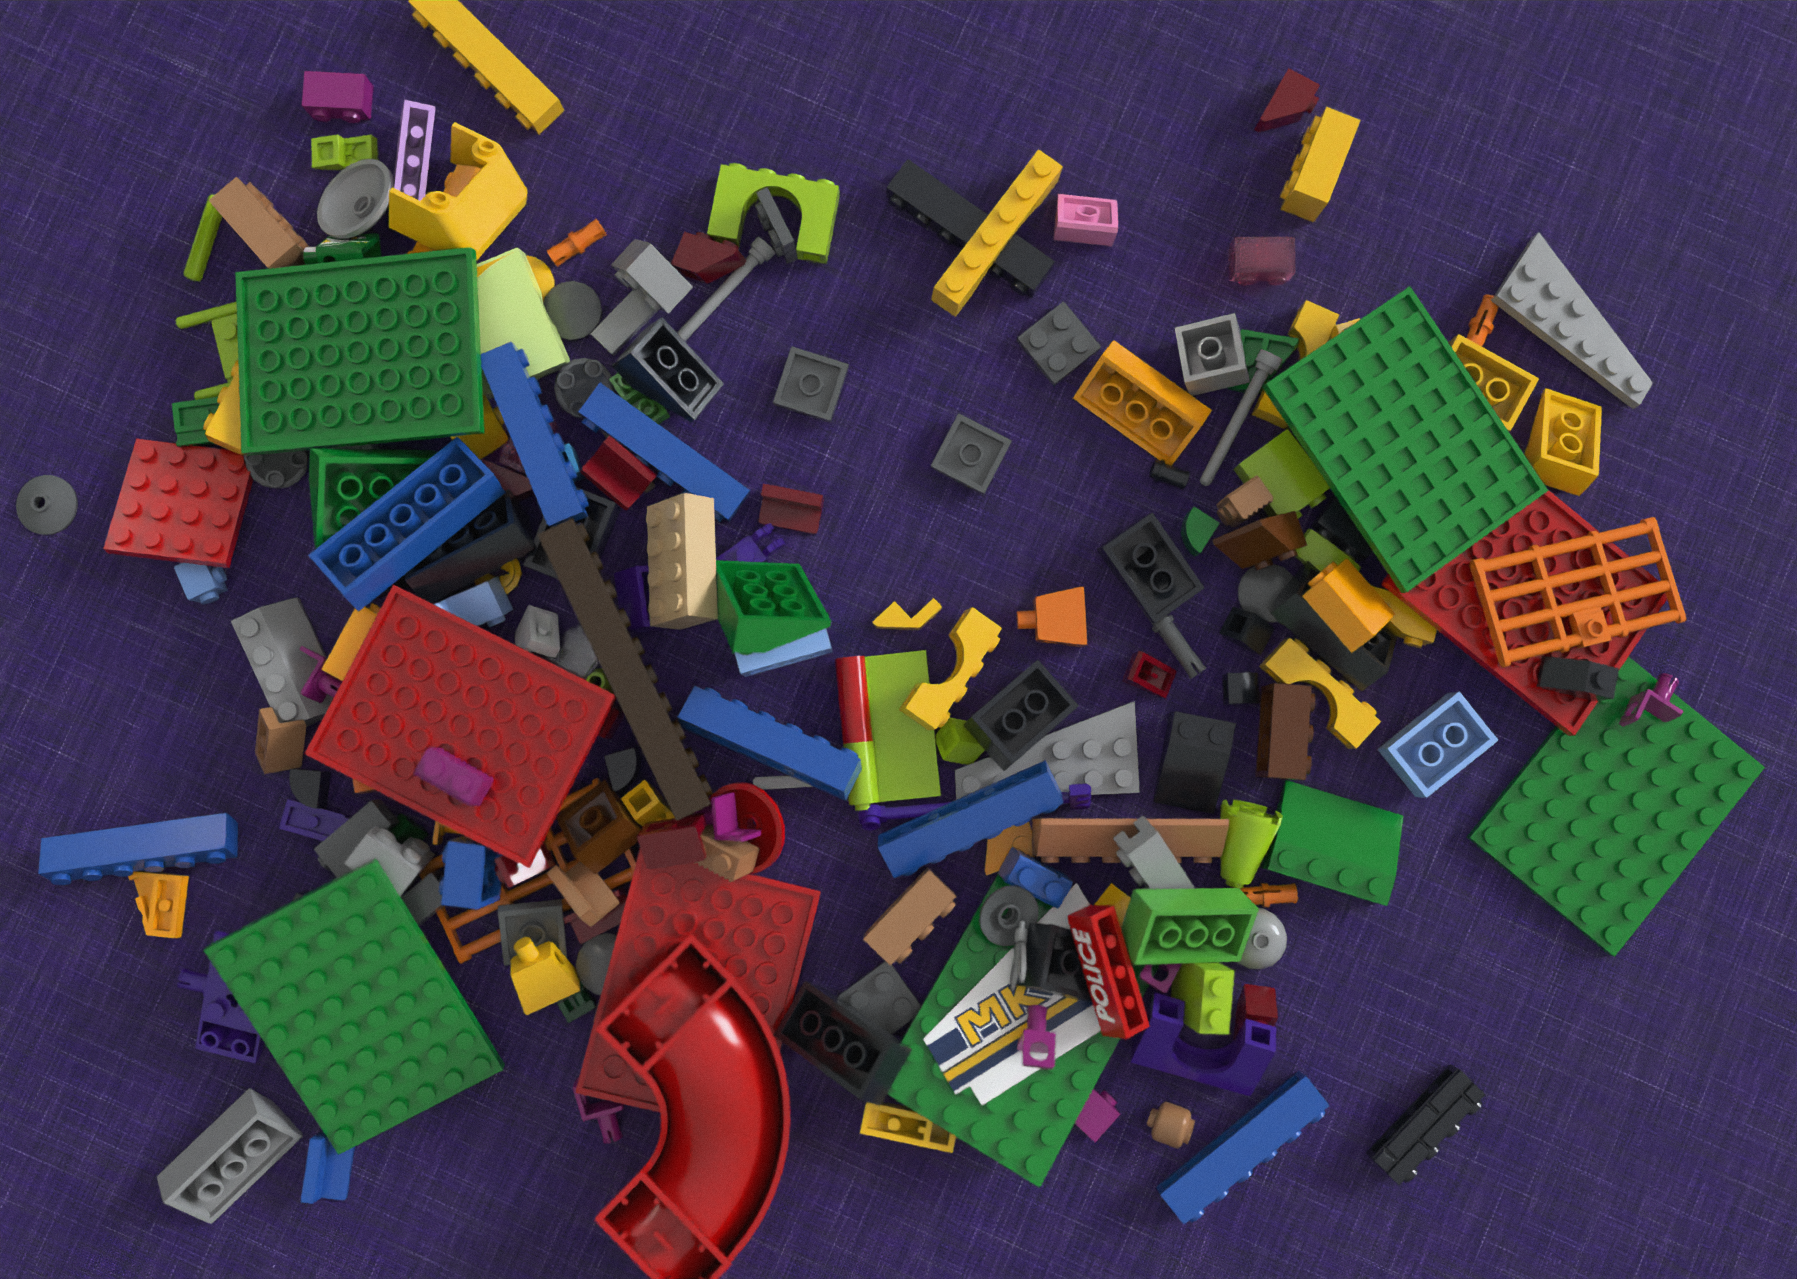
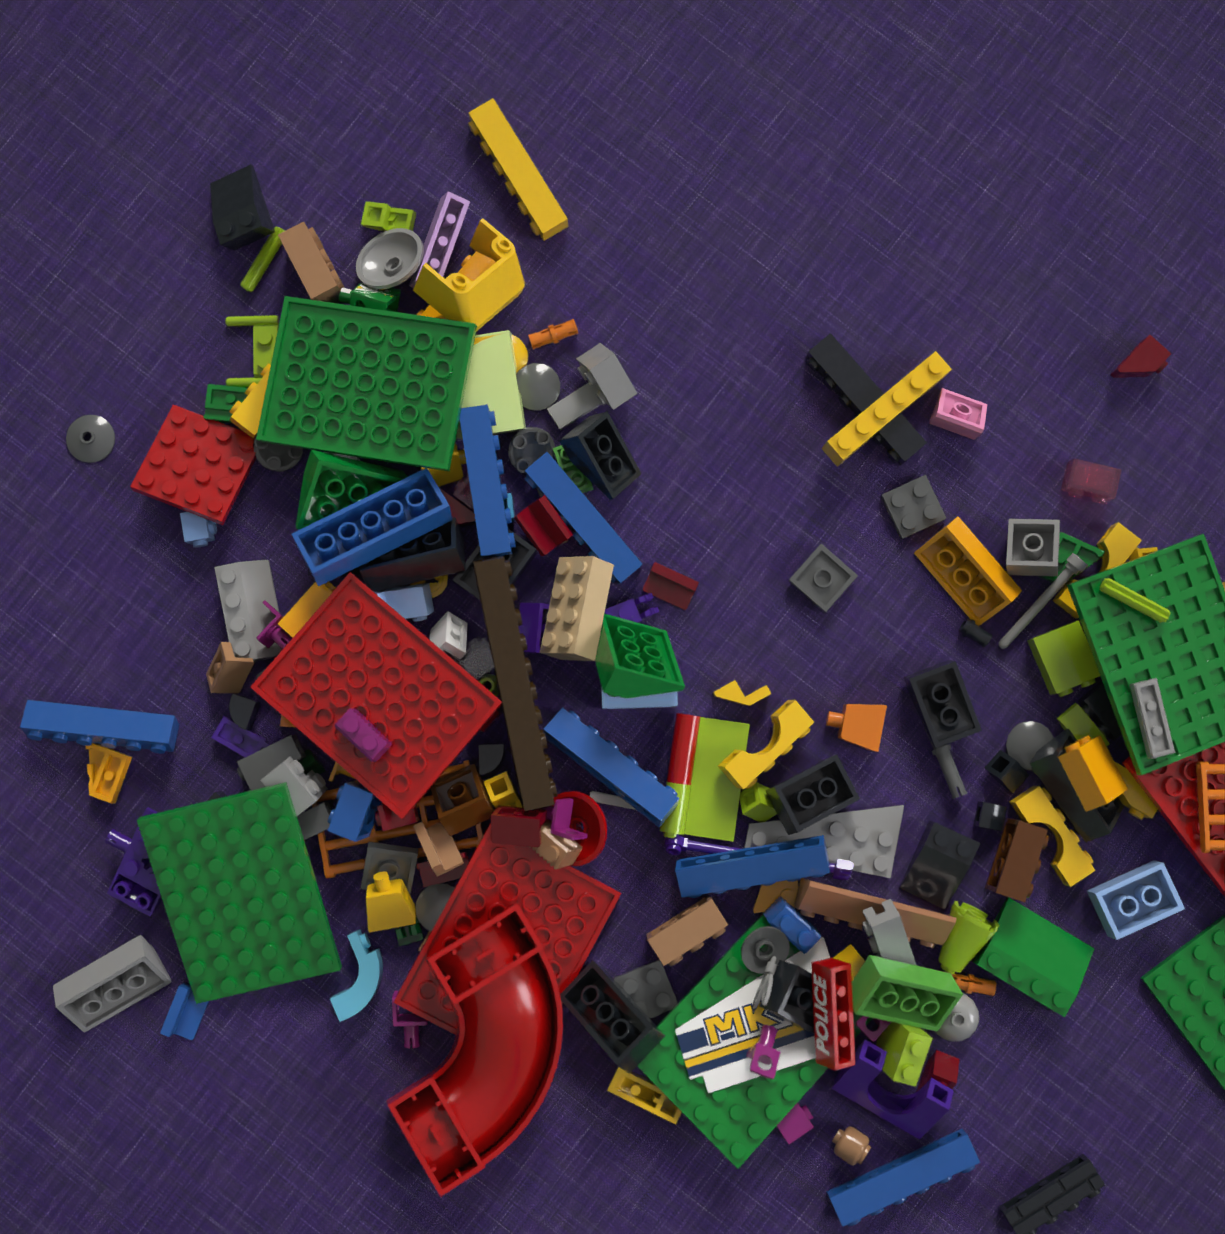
camera: 15 degrees right, 0 degrees up
(160, 185) = (239, 209): none -> black slope
(337, 96) = (394, 173): magenta brick -> none
(539, 1077) = (369, 978): none -> medium azure arch
(706, 259) = (652, 373): dark red slope -> none
(737, 193) = (693, 322): lime arch -> none
(759, 252) = (694, 377): light grey piece -> none
(779, 233) = (711, 353): dark grey plate -> none
(811, 384) = (710, 491): dark grey plate -> none
(1149, 674) = (920, 787): dark red slope -> none
(1197, 530) = (987, 682): green brick -> none
(1244, 502) = (1029, 670): medium nougat brick -> none
(1263, 541) = (1037, 705): reddish brown slope -> none
(1318, 164) = (1155, 416): yellow brick -> none
(1347, 384) = (1134, 600): none -> lime axle
(1402, 520) = (1152, 718): none -> light grey tile

